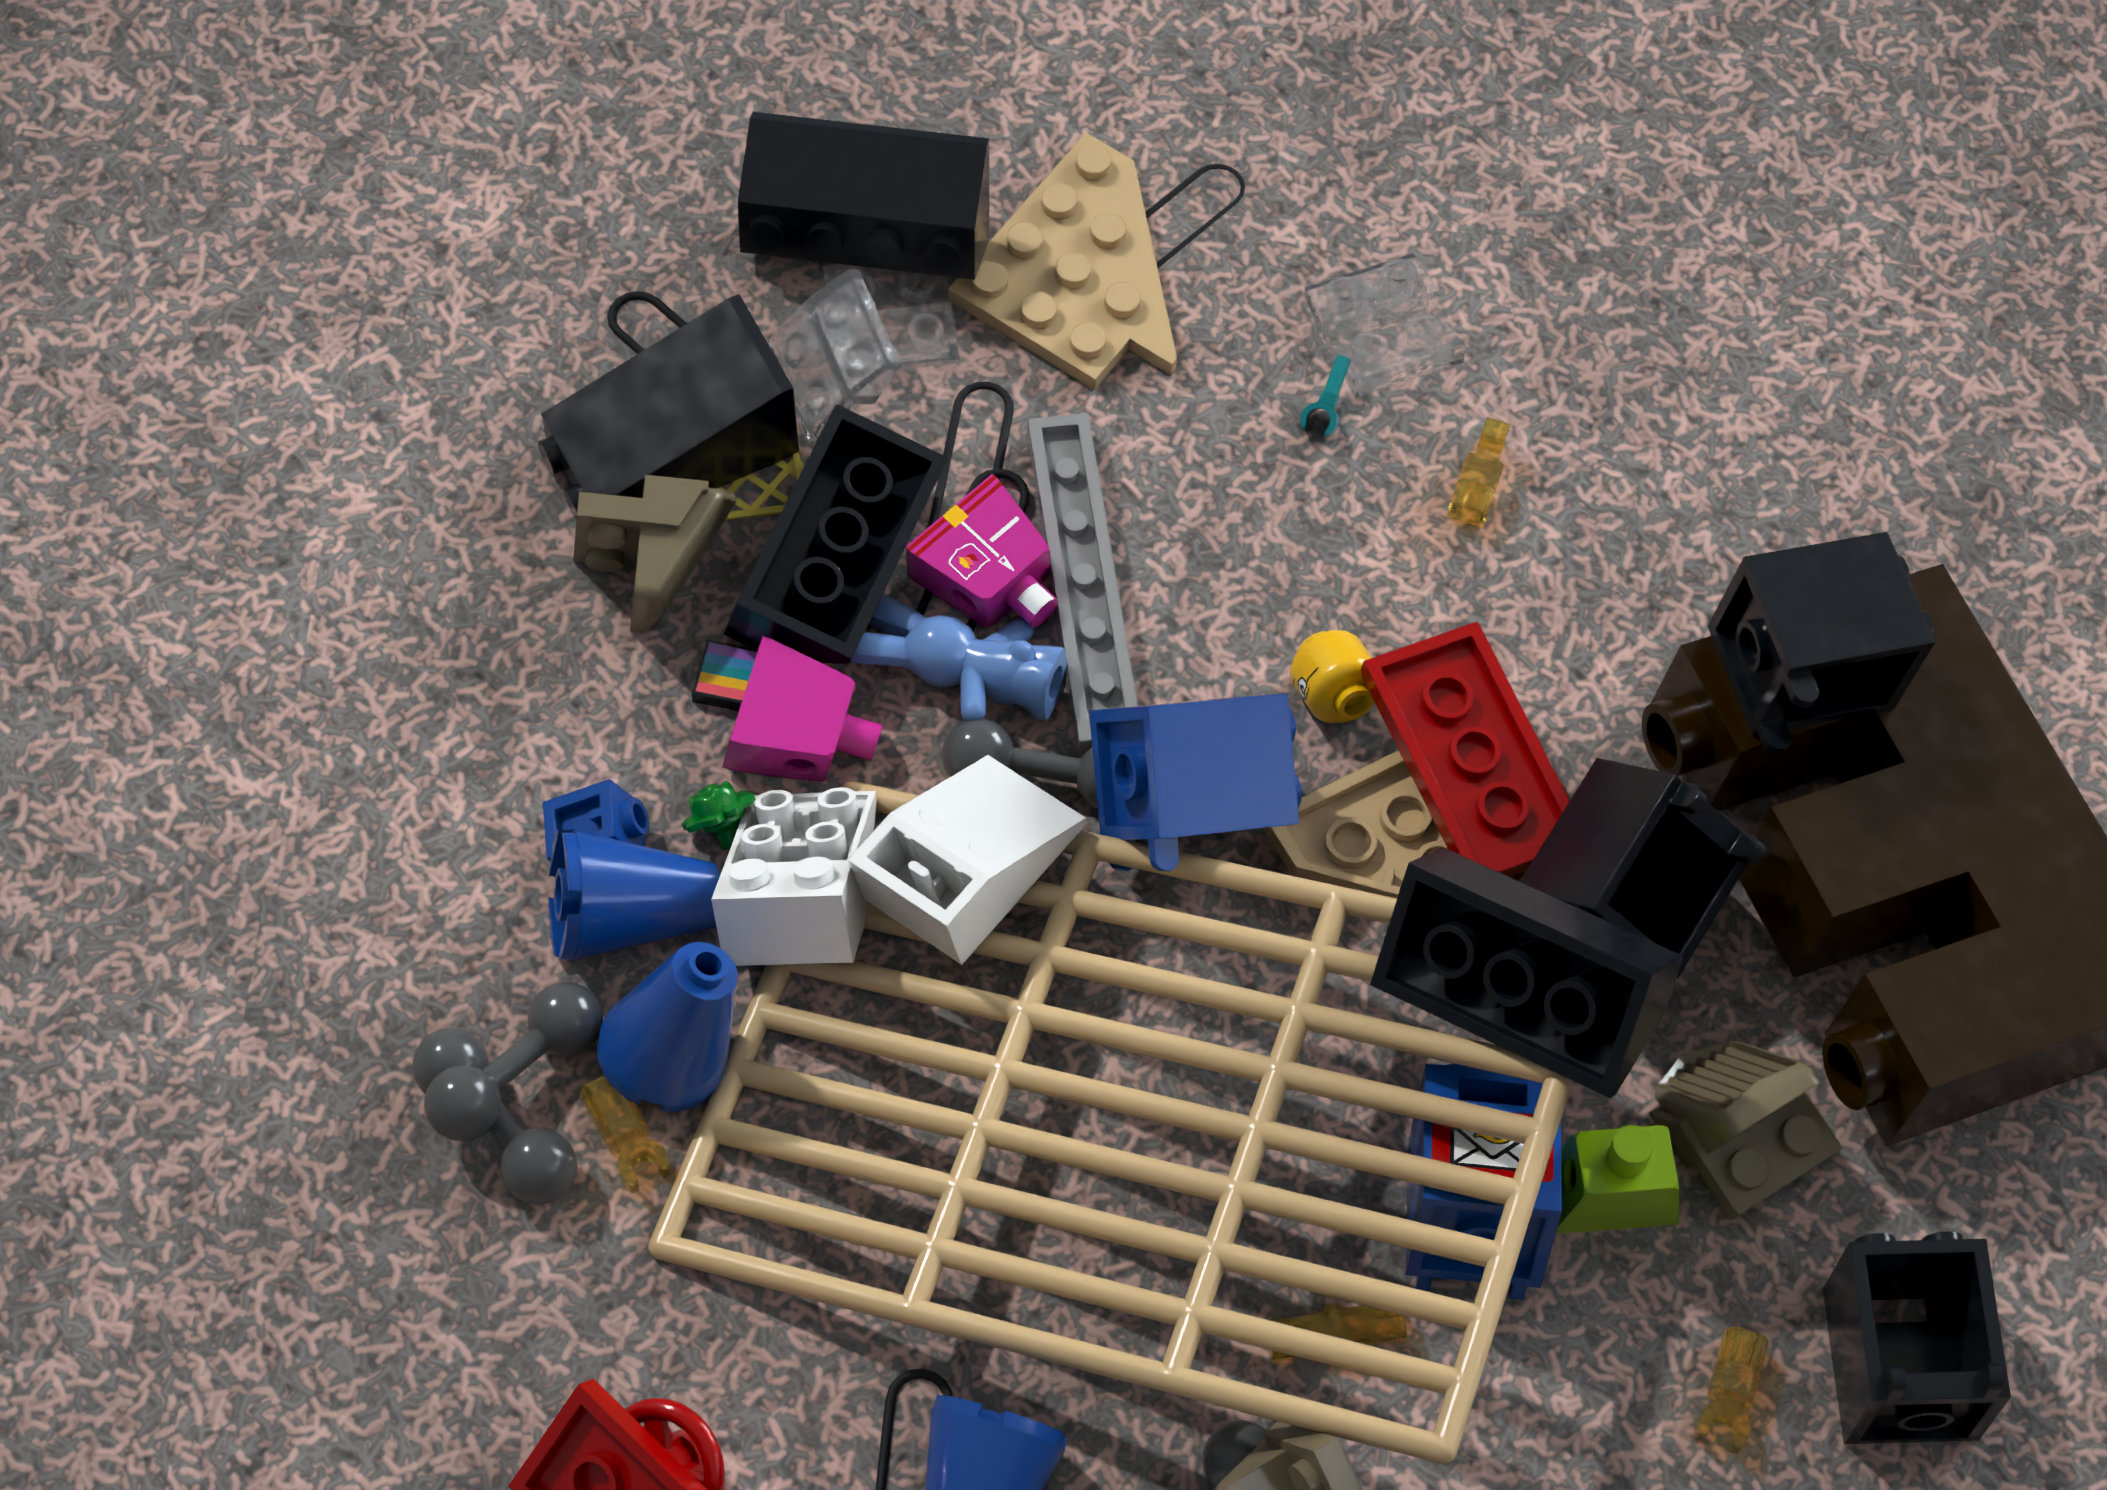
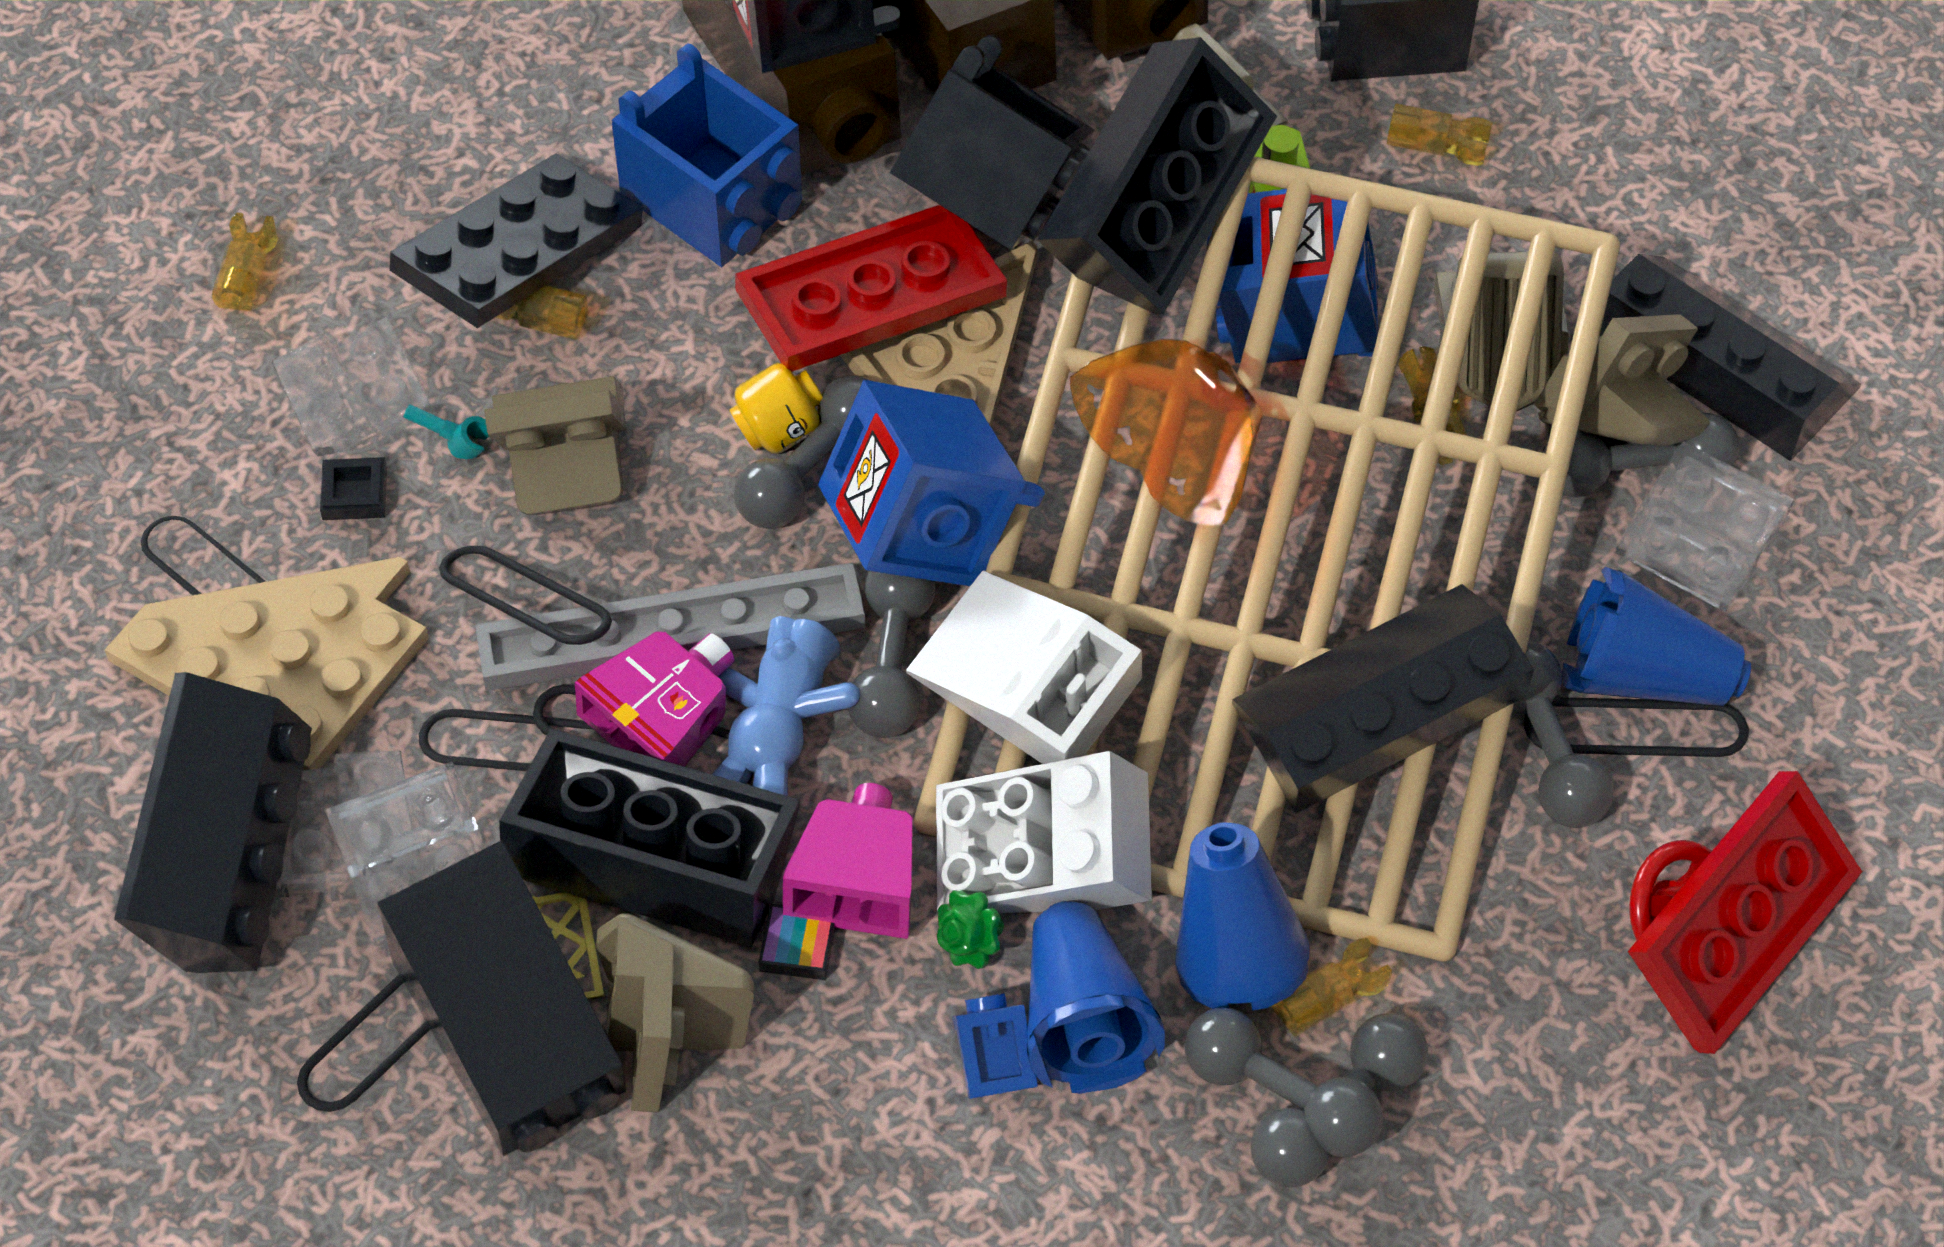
camera: 90 degrees left, 5 degrees down
(822, 1388) = (1573, 786): none -> dark grey piece
(912, 1177) = (1384, 695): none -> black slope
(1107, 435) = (514, 612): none -> black piece
(1237, 1004) = (1177, 423): none -> clear orange piece
(1265, 326) = (353, 488): none -> black tile
(1303, 483) = (562, 443): none -> dark tan piece
(1329, 744) = (771, 490): none -> dark grey piece
(1488, 1440) = (1493, 321): none -> dark tan piece
(1542, 231) = (243, 264): none -> clear yellow bar
(1554, 450) = (515, 240): none -> black plate
(1636, 607) = (707, 158): none -> blue container

